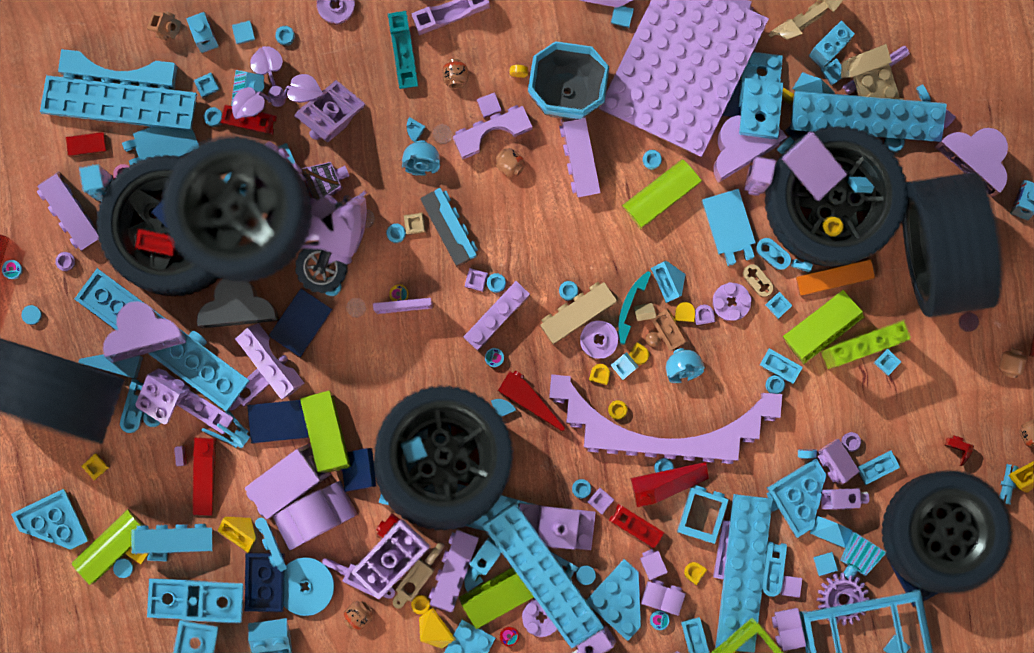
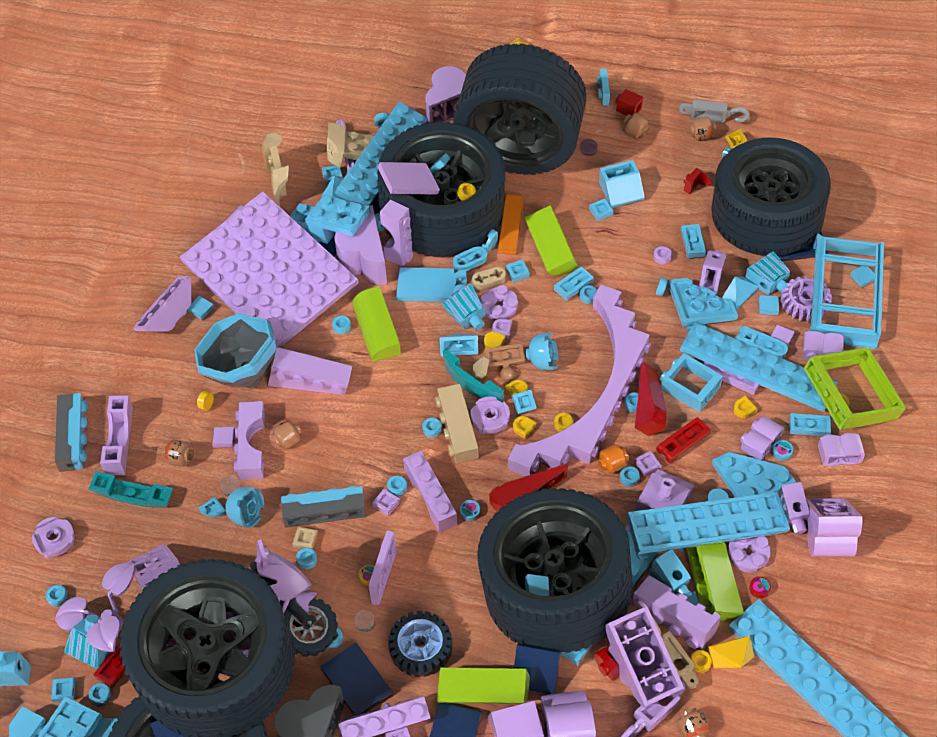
camera: 70 degrees left, 30 degrees down
(243, 32) = (30, 634): medium azure tile -> none
(334, 363) = (420, 658): none -> wheel
(589, 468) = (613, 458): none -> orange head
(653, 564) = (726, 436): lavender brick -> none
(708, 274) = (466, 308): none -> medium azure torso
(831, 44) = (309, 160): medium azure window -> none
(838, 462) = (678, 264): lavender slope -> none
(865, 345) = (582, 206): lime window -> none
(922, 374) = (621, 183): none -> slope

